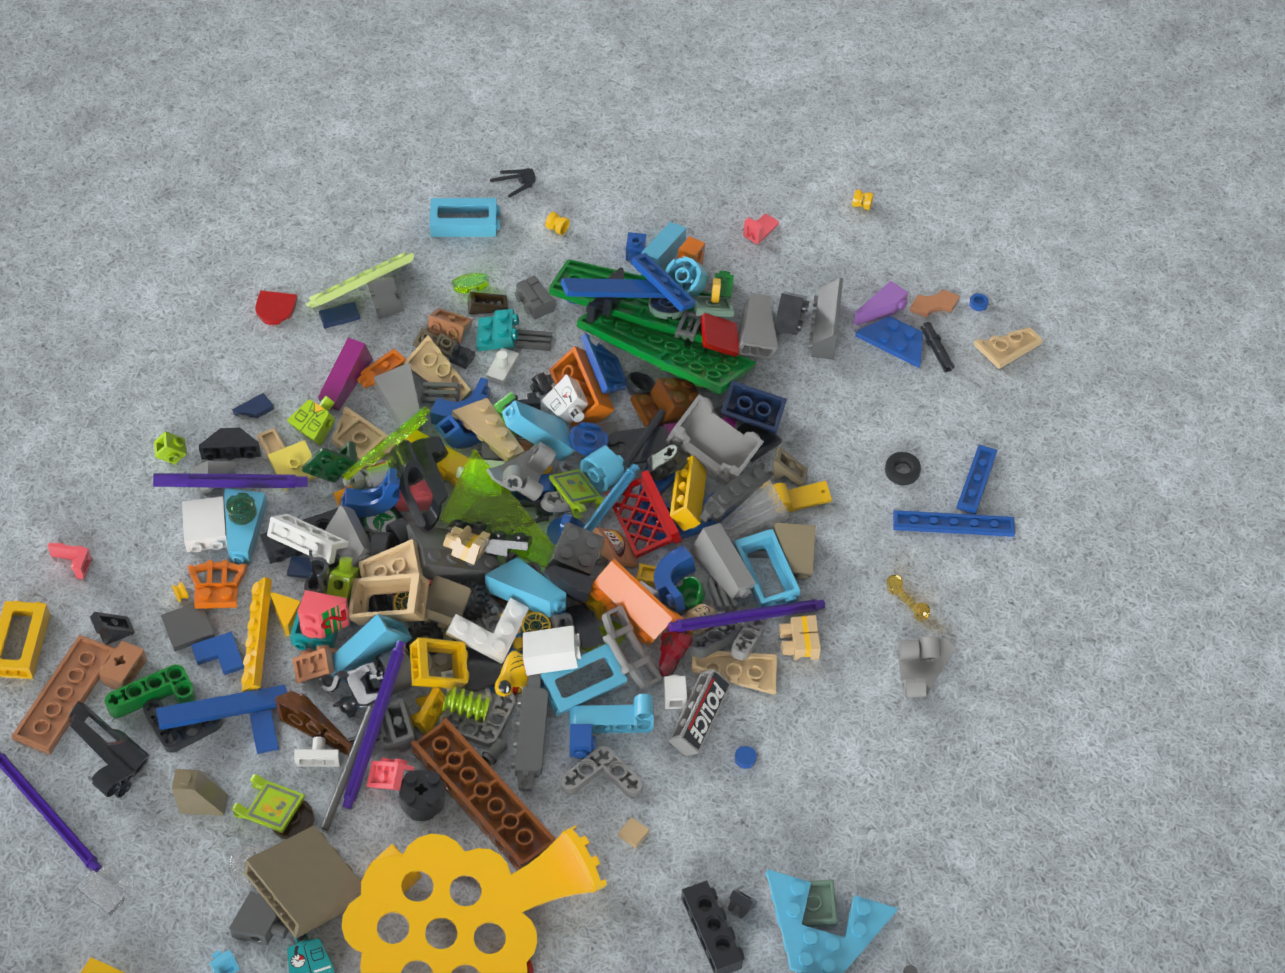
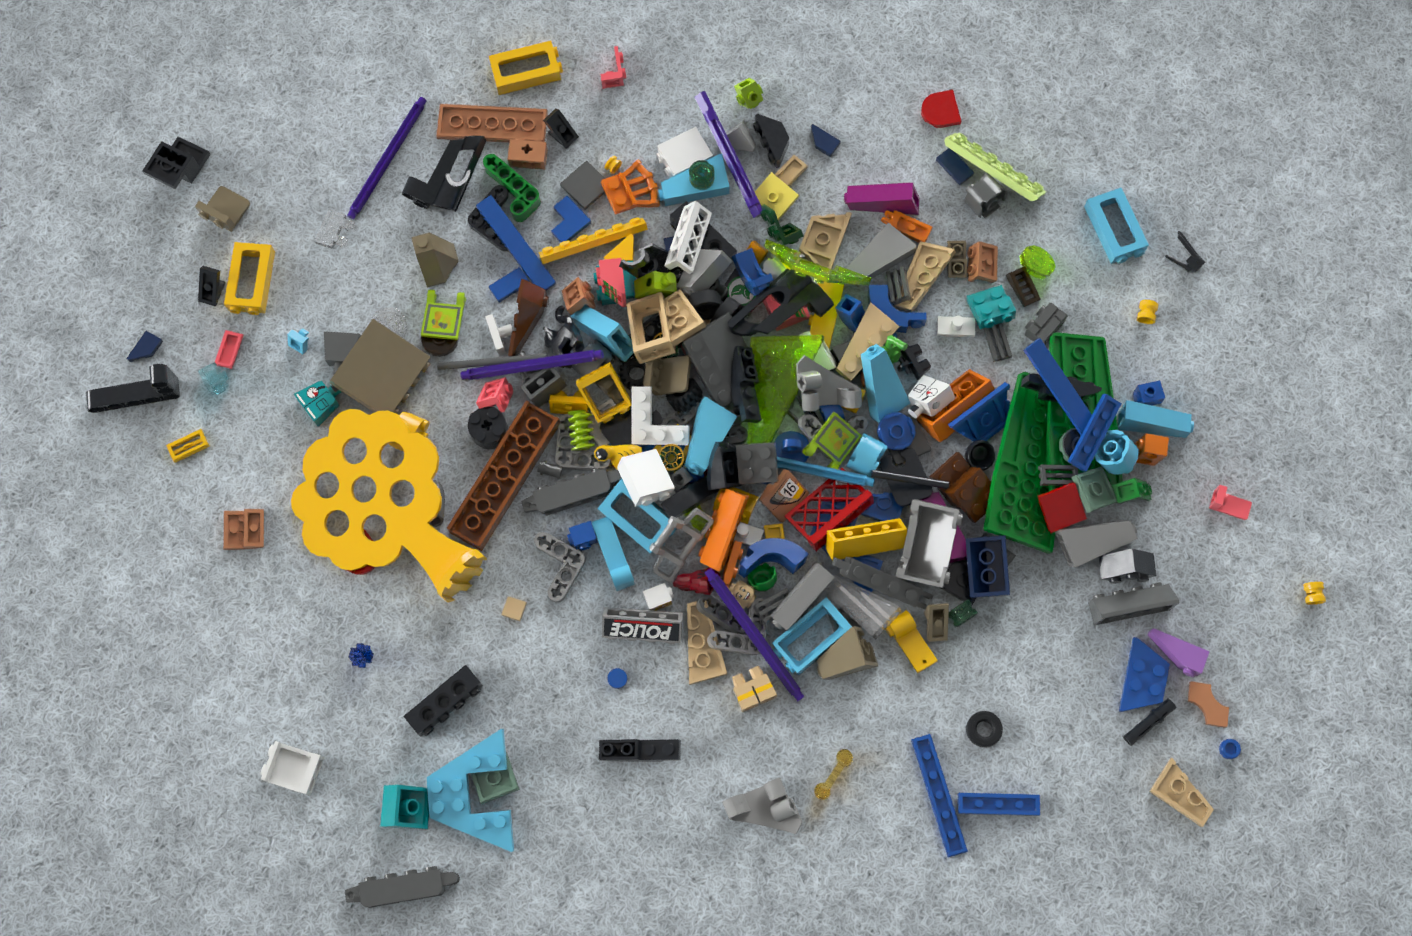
camera: 75 degrees right, 20 degrees up
(313, 419) = (823, 193): lime torso -> none
(462, 356) = (951, 288): black tile -> none
(466, 544) = (722, 370): tan hips -> none
(541, 383) = (945, 368): black gear -> none
(664, 462) = (890, 508): pearl dark grey piece -> none
(716, 290) = (1112, 485): yellow tile -> none
(742, 900) = (477, 718): black tile -> none
(789, 444) = (962, 613): none -> clear green wheel
(829, 754) = (640, 750): none -> black slope

